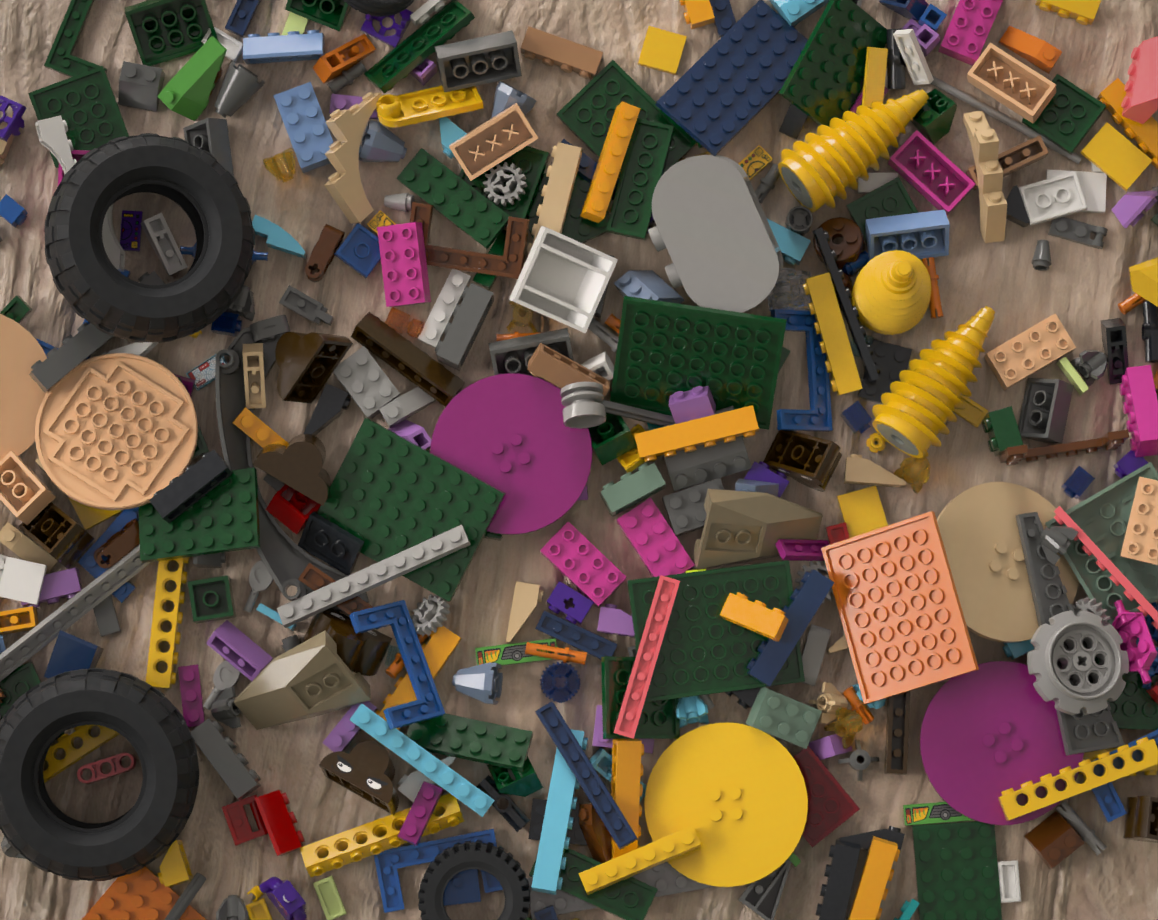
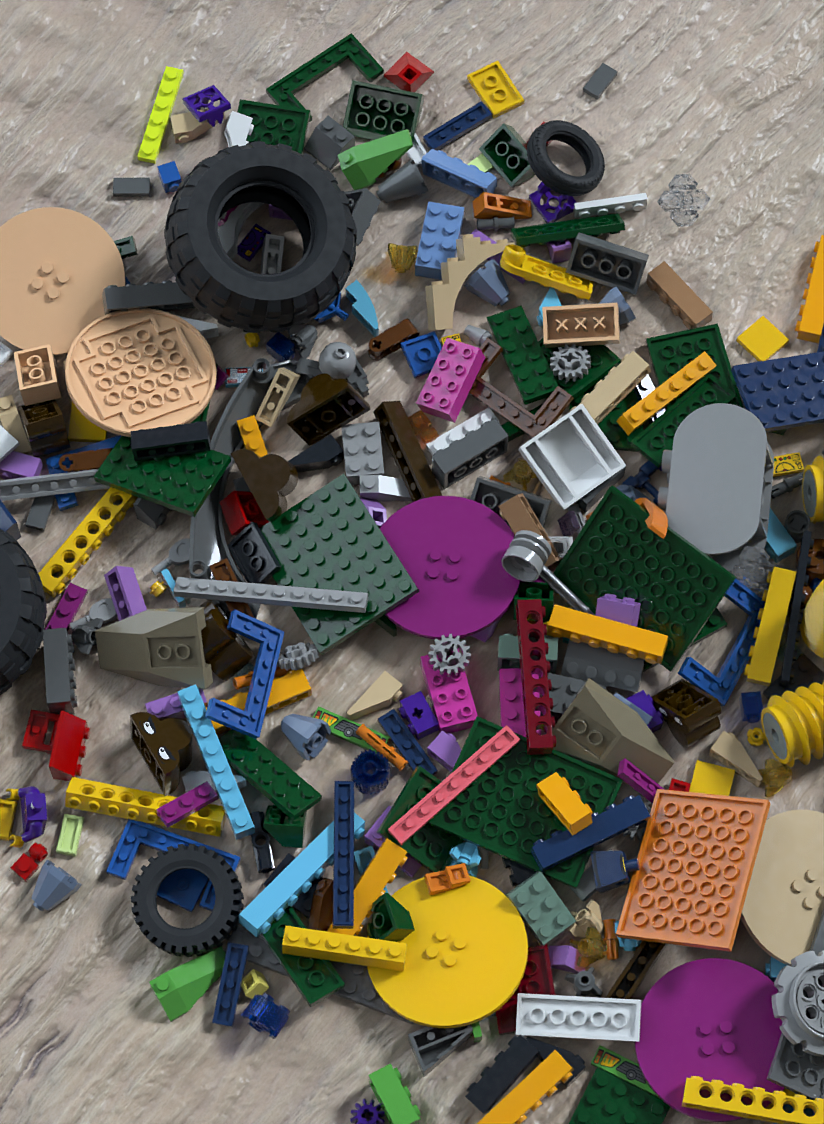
camera: 30 degrees right, 15 degrees down
(211, 599) = (131, 544): dark green brick -> none
(262, 624) = (158, 588): none -> yellow plate
(288, 308) = (337, 360): none -> light grey cylinder
(558, 536) = (456, 659): none -> light grey gear
(593, 339) = (568, 523): none -> clear purple tile
(622, 450) = (536, 743): none -> dark red brick
(634, 256) = (643, 478): none -> dark blue bar
(662, 811) = (389, 920): none -> dark green slope
(686, 308) = (657, 520): none -> orange slope
(688, 740) = (446, 880): none -> orange slope
(826, 646) = (612, 869): none -> dark blue torso
(875, 796) = (578, 1017): none -> white plate

